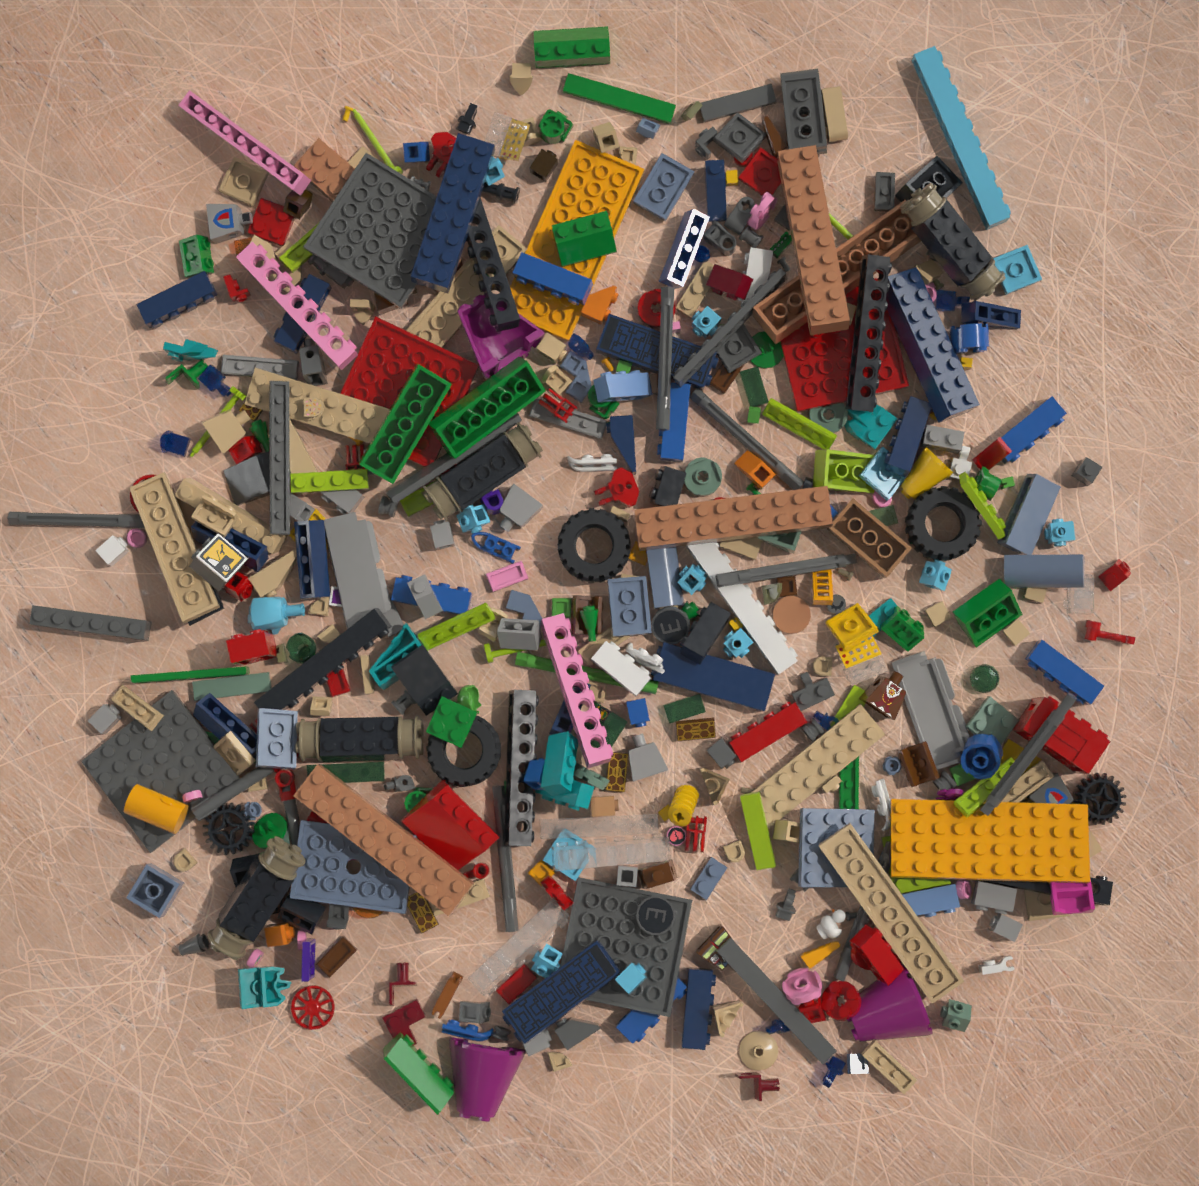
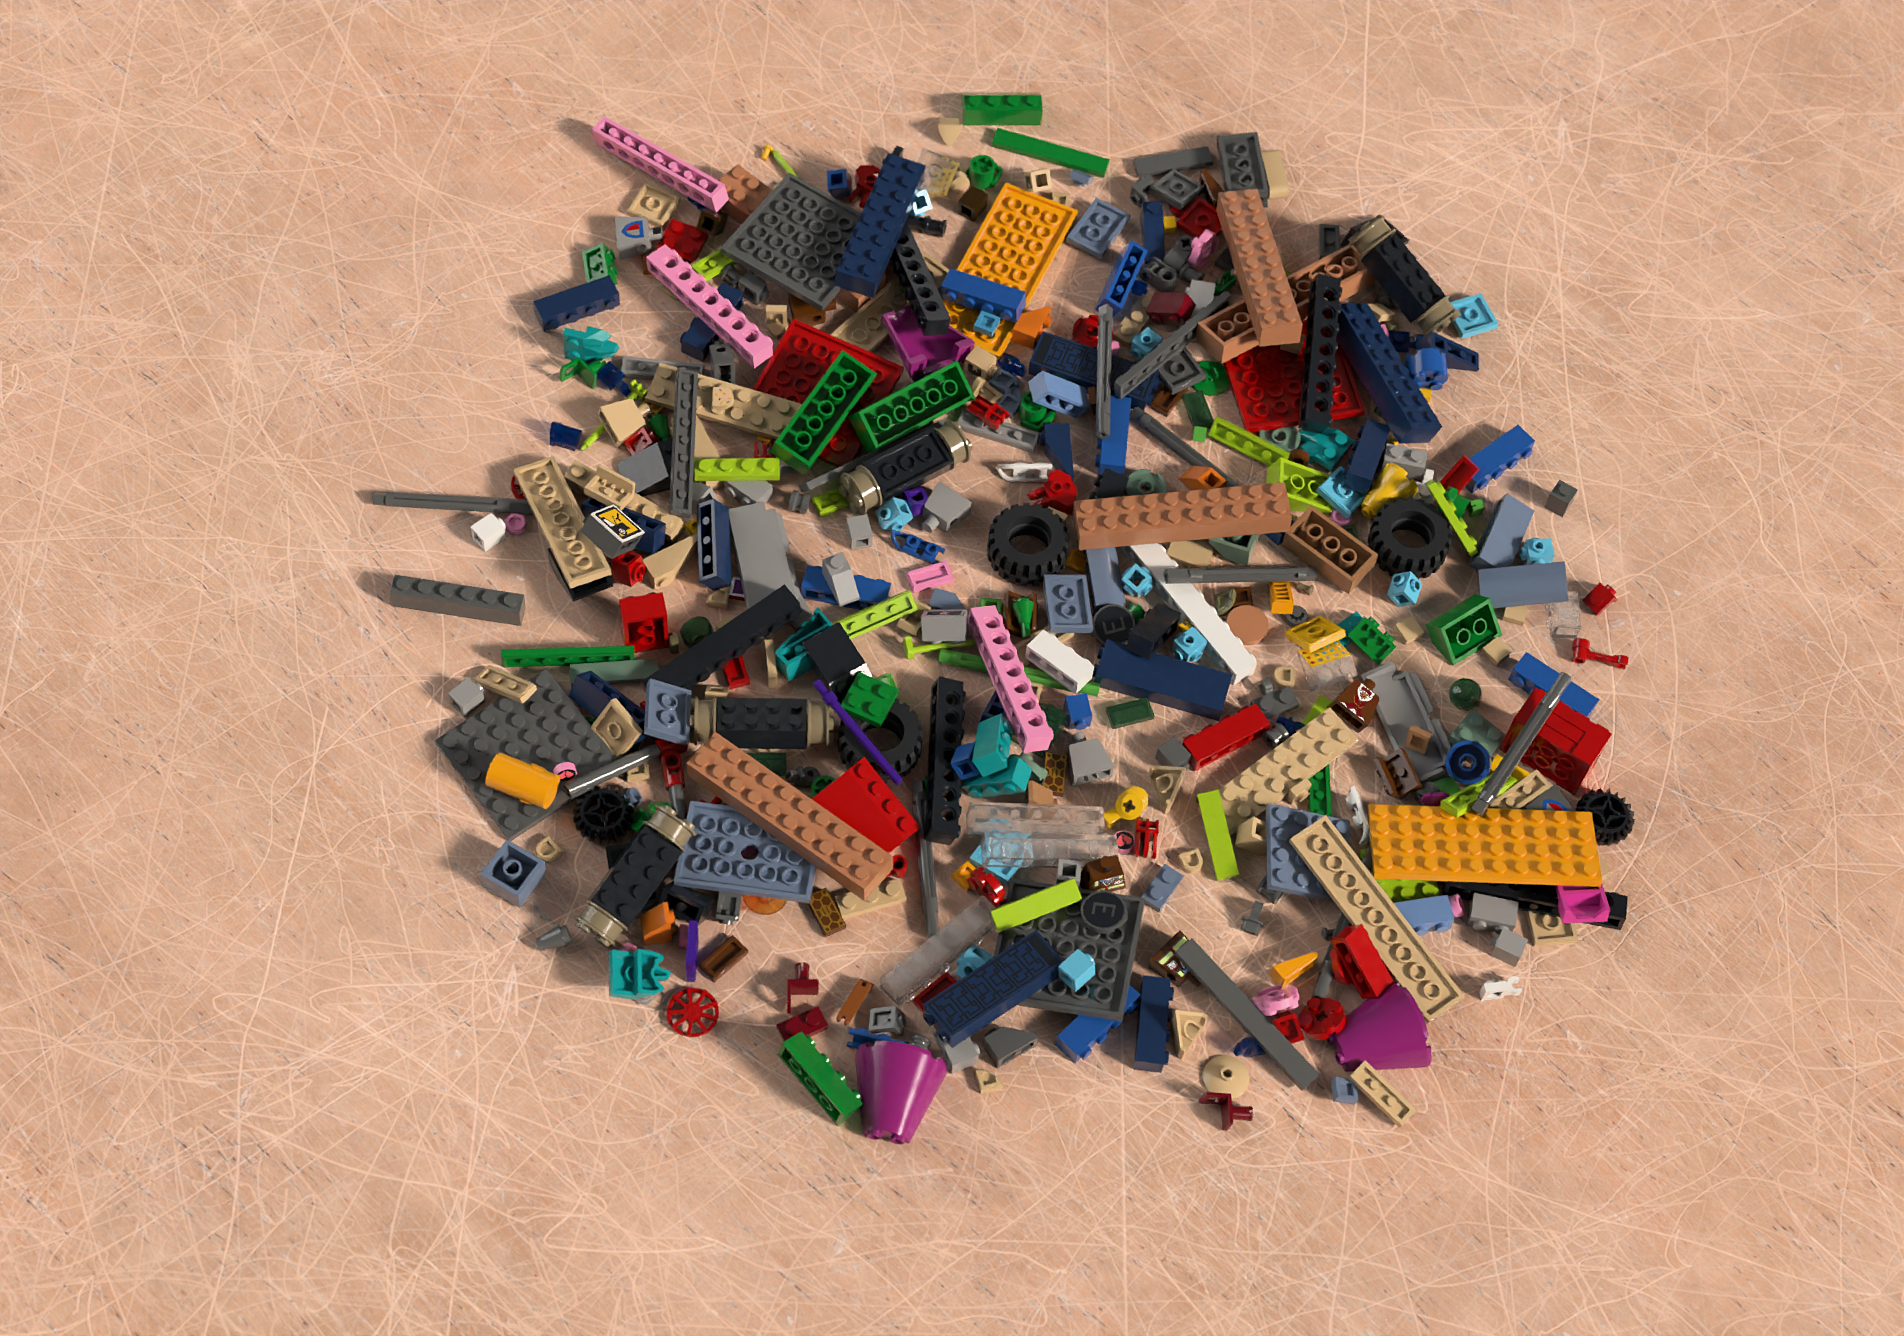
camera: 10 degrees left, 25 degrees down
(232, 286) = (641, 301): red bracket -> none
(272, 613) = (672, 592): medium azure piece -> none
(403, 702) = (809, 692): dark grey bush -> none
(416, 727) = (830, 699): none -> dark purple bar
(556, 308) = (986, 323): none -> dark azure plate
(584, 238) = (1016, 261): green slope -> none
(598, 909) = (1035, 905): none -> lime tile
(642, 657) = (1098, 652): white piece -> none
(693, 108) = (1125, 164): olive tile -> none
(695, 729) = (1143, 732): reddish brown tile -> none
(828, 924) = (1303, 940): white animal -> none
(835, 1068) = (1318, 1093): clear blue piece -> none
(845, 438) = (1299, 456): none -> reddish brown tile
(892, 770) = (1367, 772): sand blue plate -> none
(939, 730) = (1418, 739): none -> medium nougat tile
(956, 1015) = (1457, 1038): sand green brick -> none
(960, 137) = (1405, 201): medium azure brick -> none

